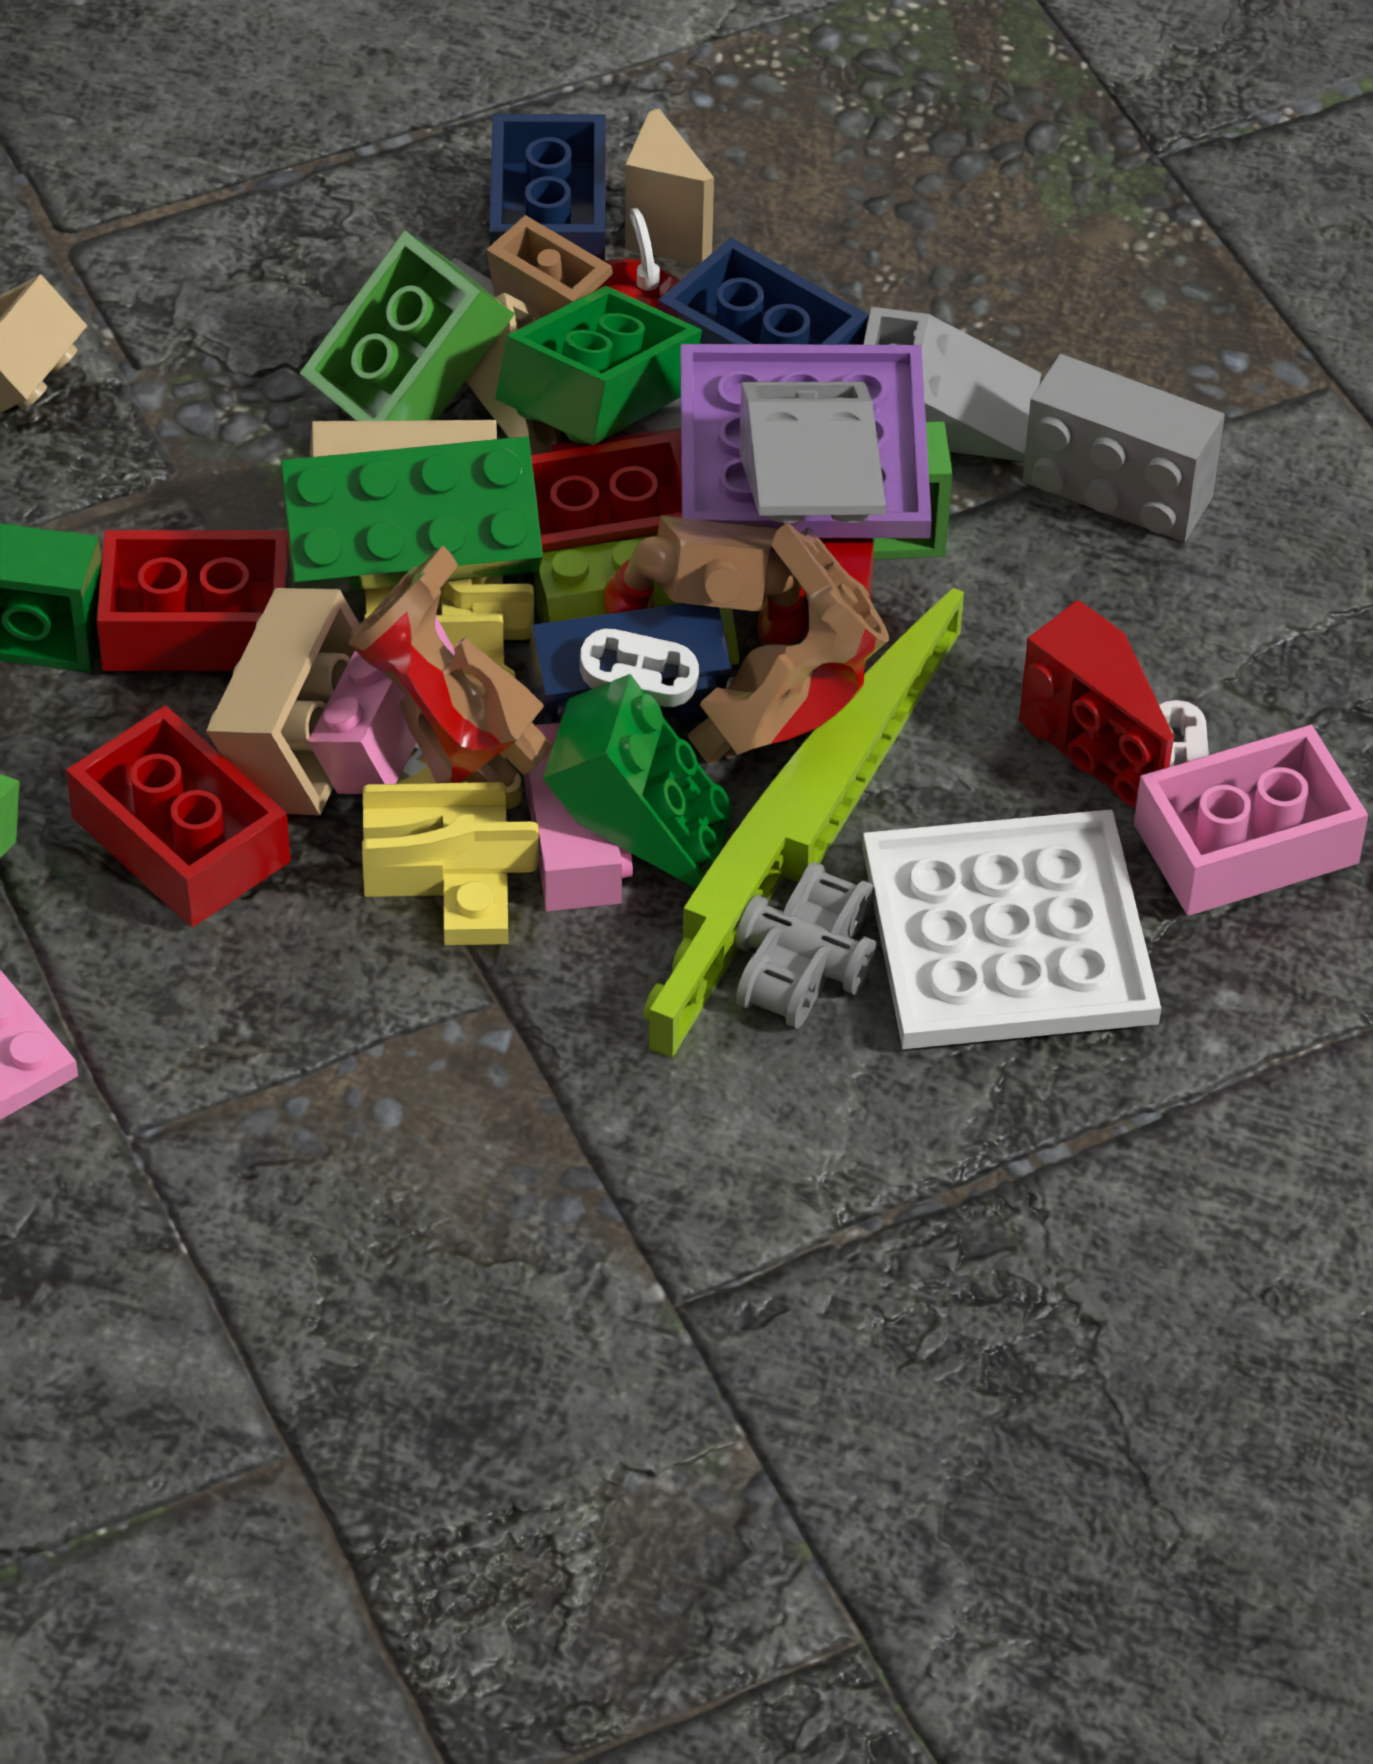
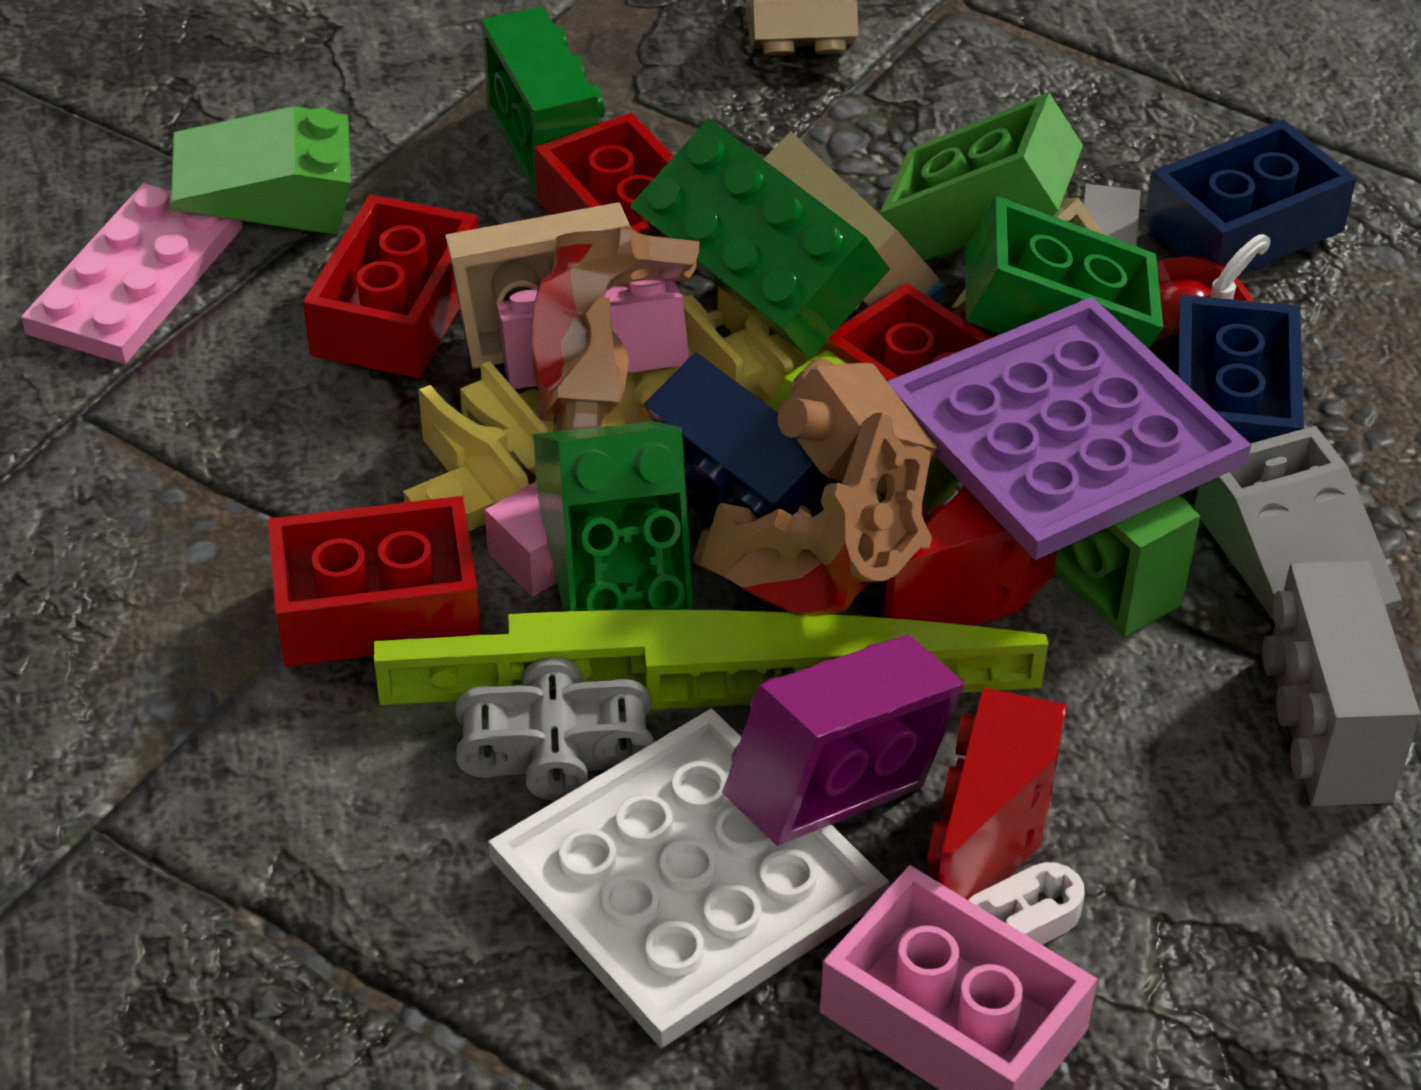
camera: 60 degrees right, 5 degrees down
(543, 267) = (1143, 209): medium nougat slope -> none
(564, 985) = (372, 578): none -> red brick
(643, 659) = (721, 434): white beam -> none
(670, 192) = (1321, 252): tan slope -> none
(811, 450) = (993, 396): light grey slope -> none
(990, 753) = (841, 737): none -> magenta brick

